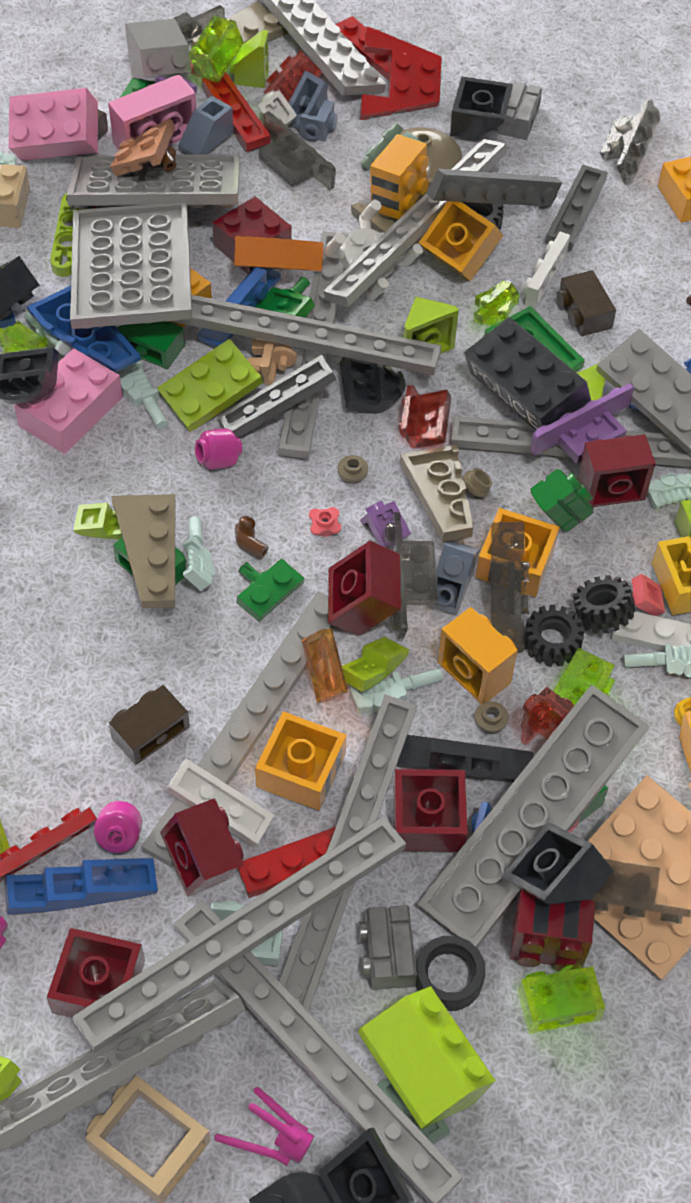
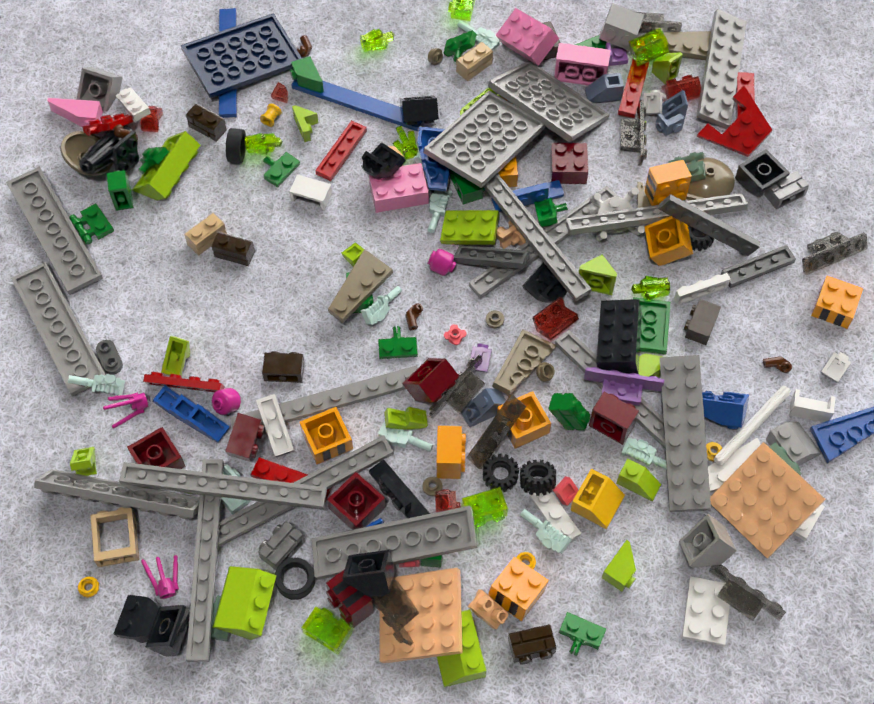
camera: 45 degrees right, 5 degrees up
(144, 148) = (555, 80): nougat wing -> none
(168, 161) = (563, 90): reddish brown arm -> none
(278, 253) = (565, 182): orange slope -> none
(324, 665) = (383, 396): clear orange plate -> none

